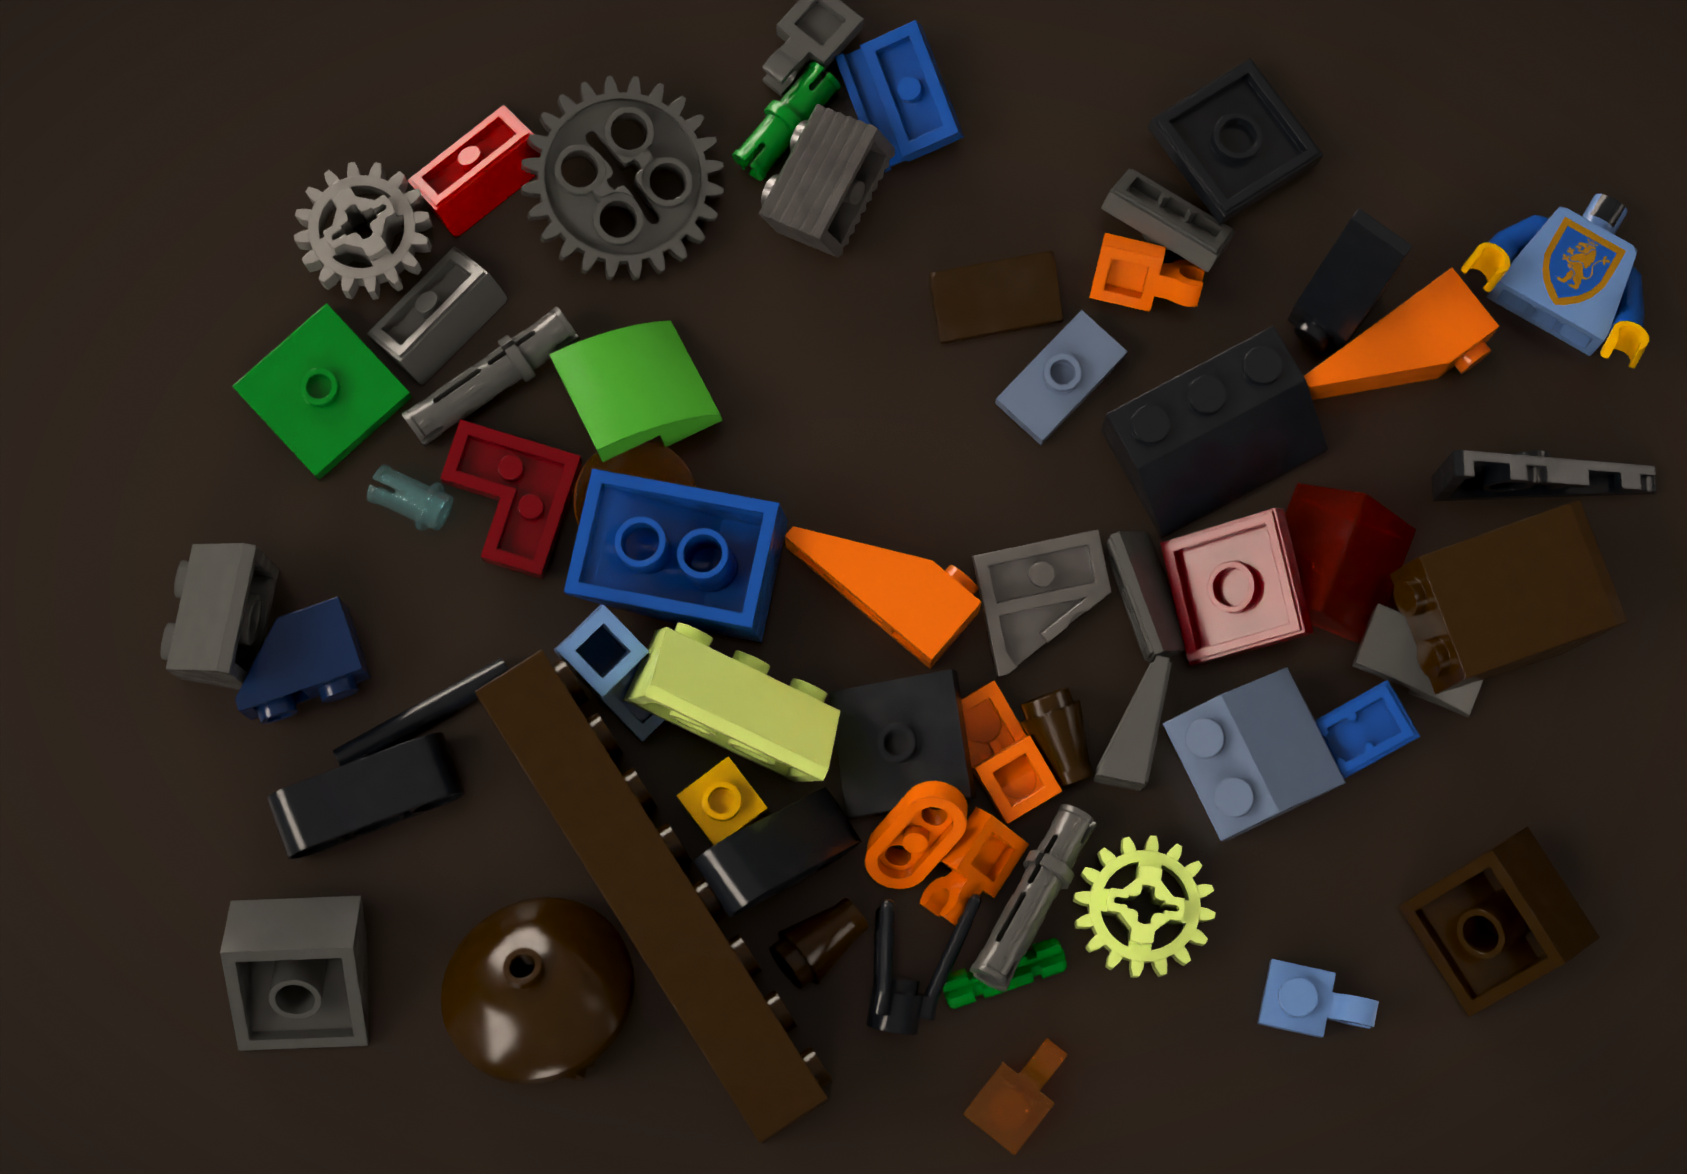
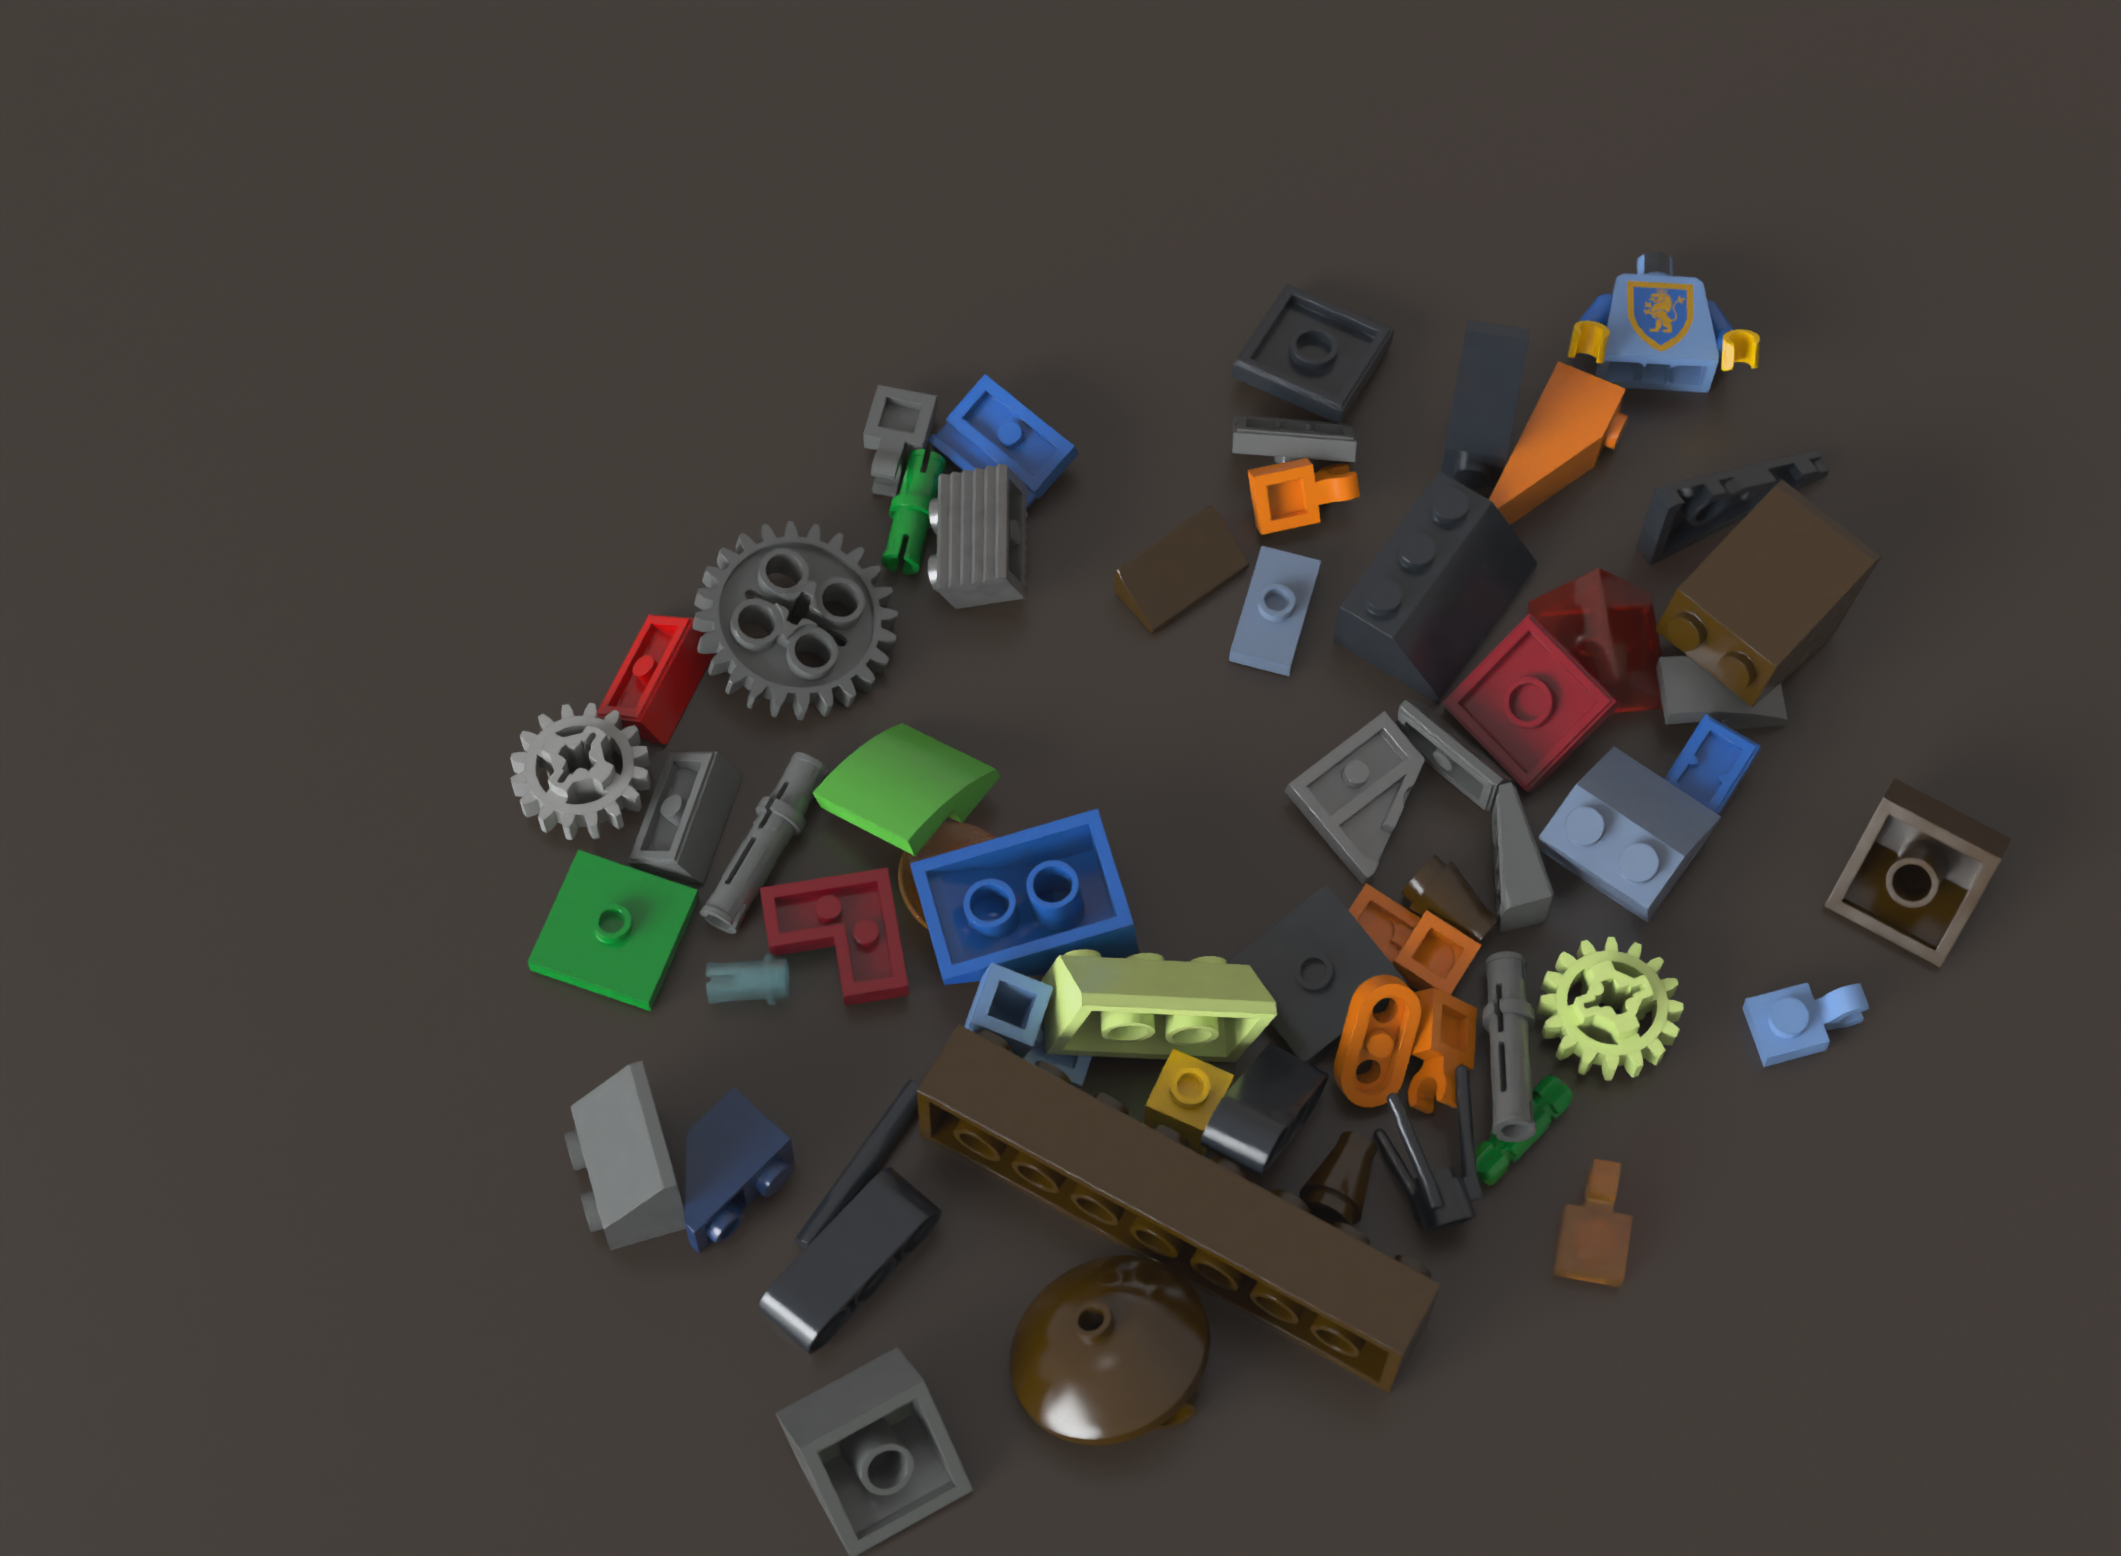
camera: 30 degrees left, 15 degrees down
(897, 591) = (1236, 849): orange slope -> none

